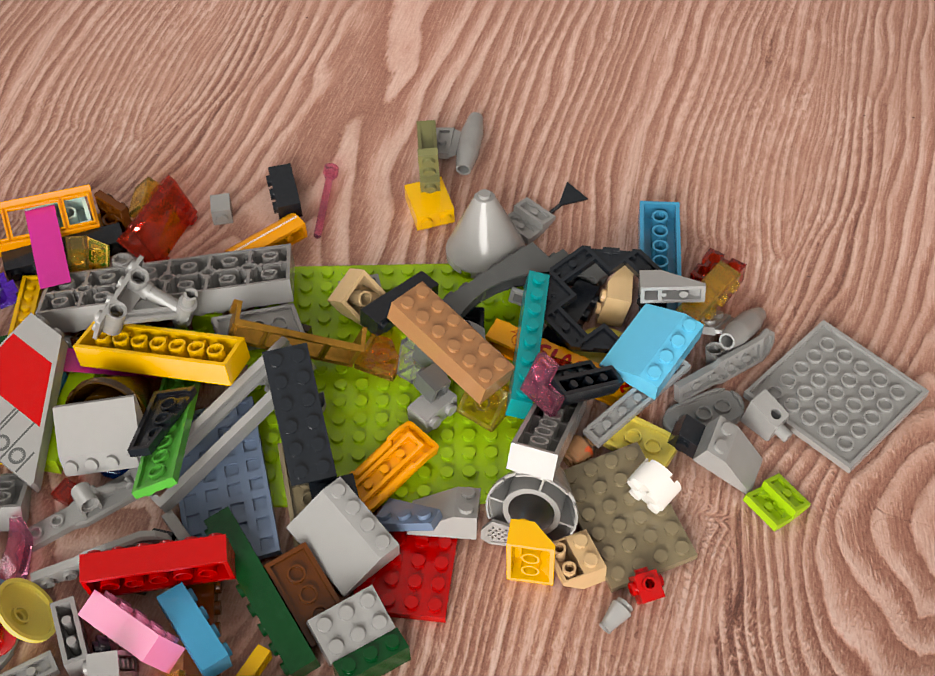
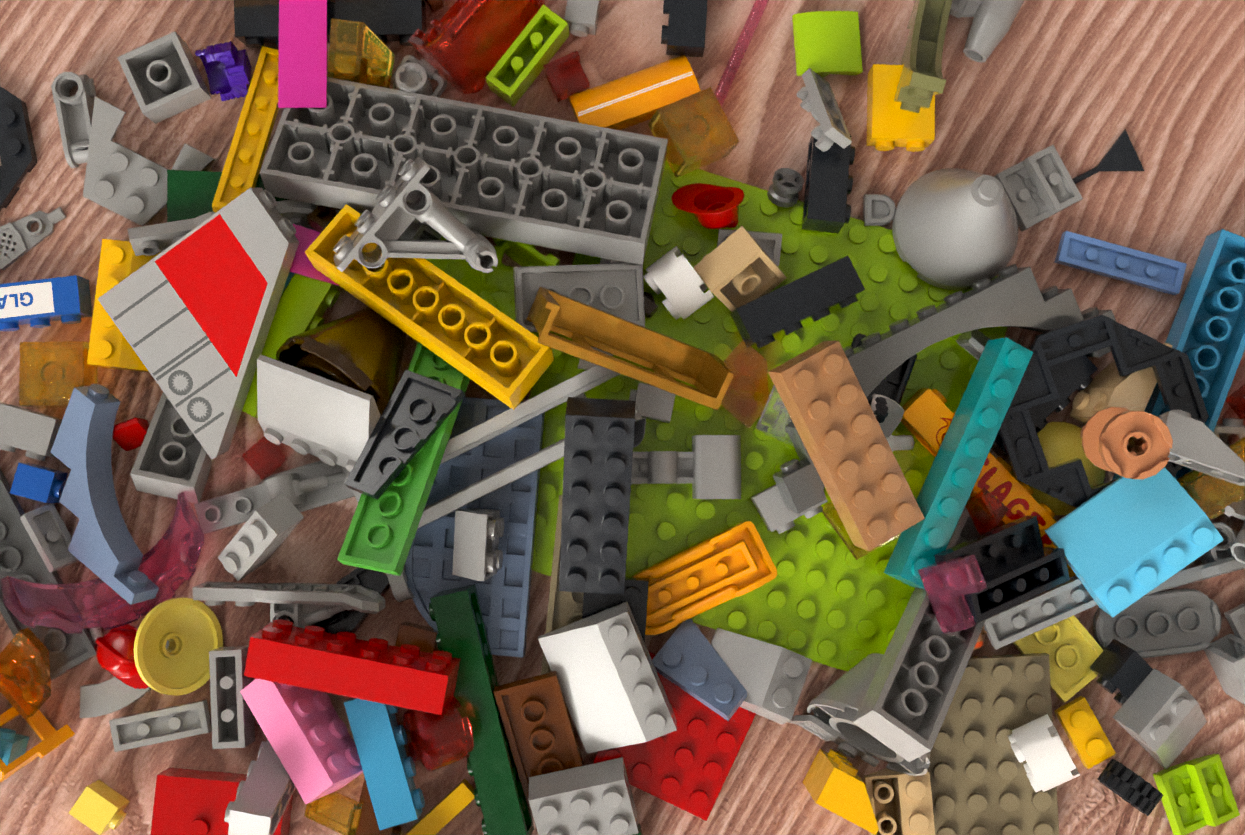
camera: 15 degrees right, 35 degrees up
(73, 522) = (260, 536): none -> light grey brick
(194, 233) = (527, 55): none -> lime brick
(218, 240) = (566, 76): none -> clear red panel
(227, 479) = (477, 543): none -> light grey slope
(231, 603) = (439, 738): none -> clear red brick
(309, 243) = (695, 132): none -> clear yellow brick
(321, 312) = (678, 283): none -> white brick
(327, 380) = (653, 402): none -> light grey brick
(331, 275) = (711, 204): none -> red piece
(373, 256) = (785, 187): none -> flat silver wheel
(374, 188) = (827, 42): none -> lime slope
(374, 405) = (710, 467): none -> light grey plate
(382, 211) = (821, 102): none -> light grey plate
(398, 246) = (827, 188): none -> black brick
(435, 256) = (878, 210): none -> light grey tile
(596, 239) = (1120, 263): none -> medium blue plate
(618, 286) = (1127, 442): none -> nougat piece
(691, 491) = (1084, 732): none -> yellow plate
(726, 501) = (1130, 787): none -> black tyre

